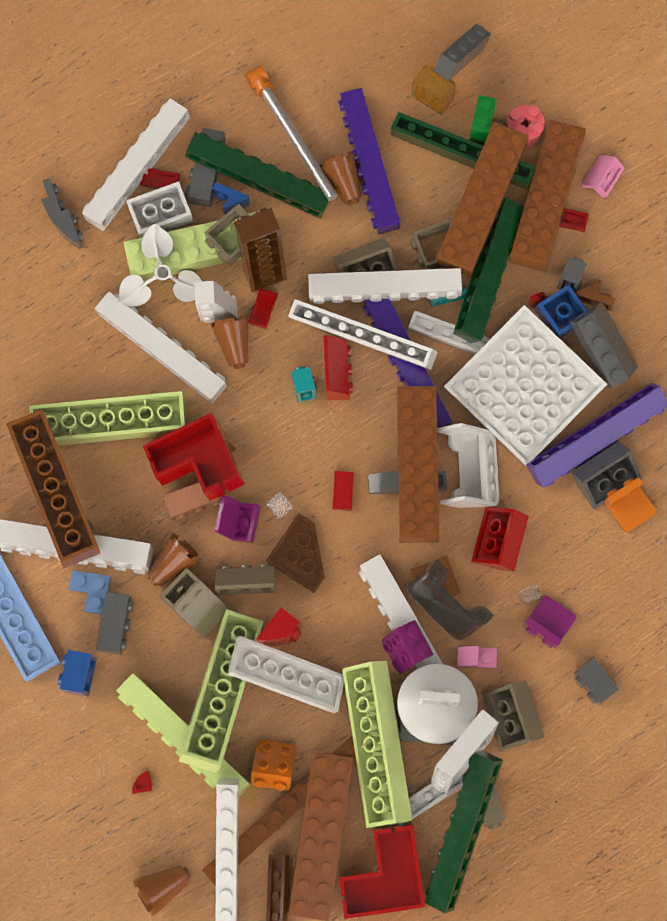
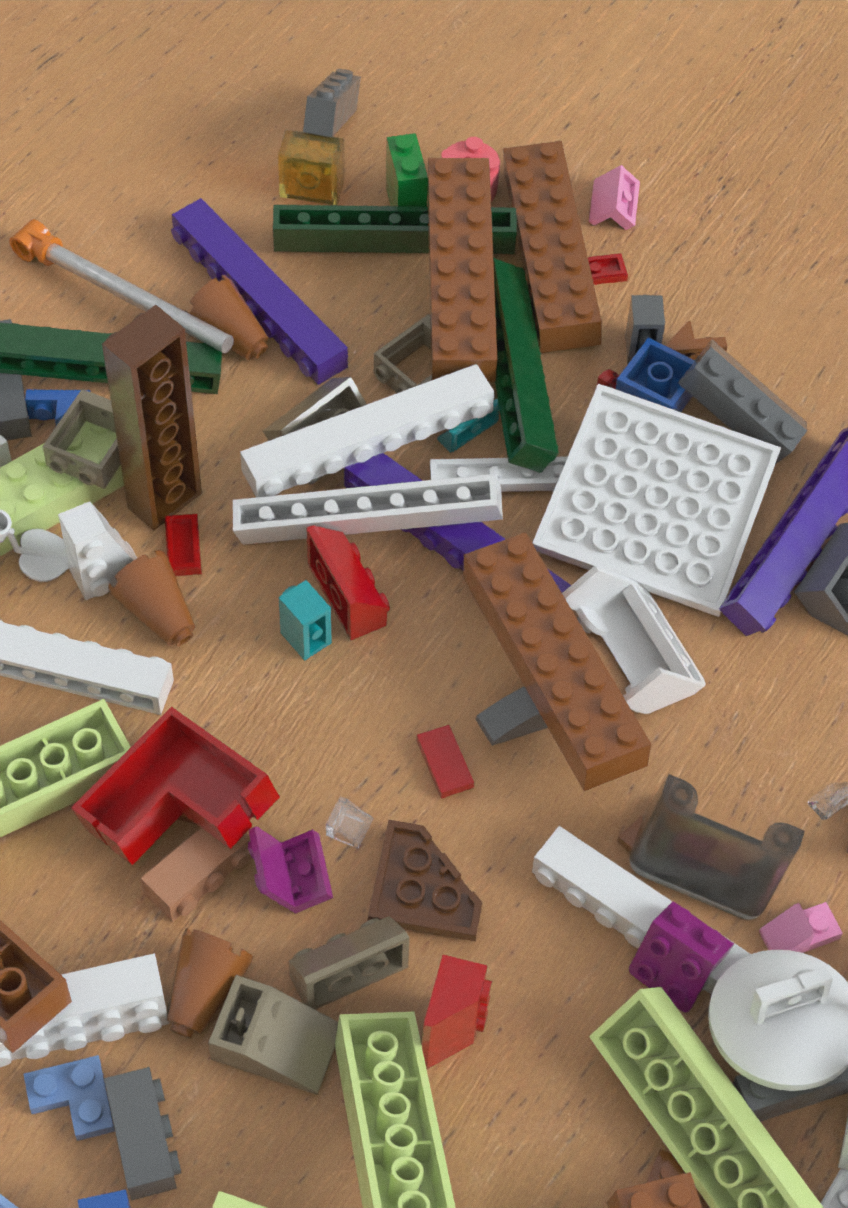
camera: 30 degrees left, 20 degrees down
(286, 674) = (499, 1080): white plate -> none
(500, 538) = (738, 732): red slope -> none

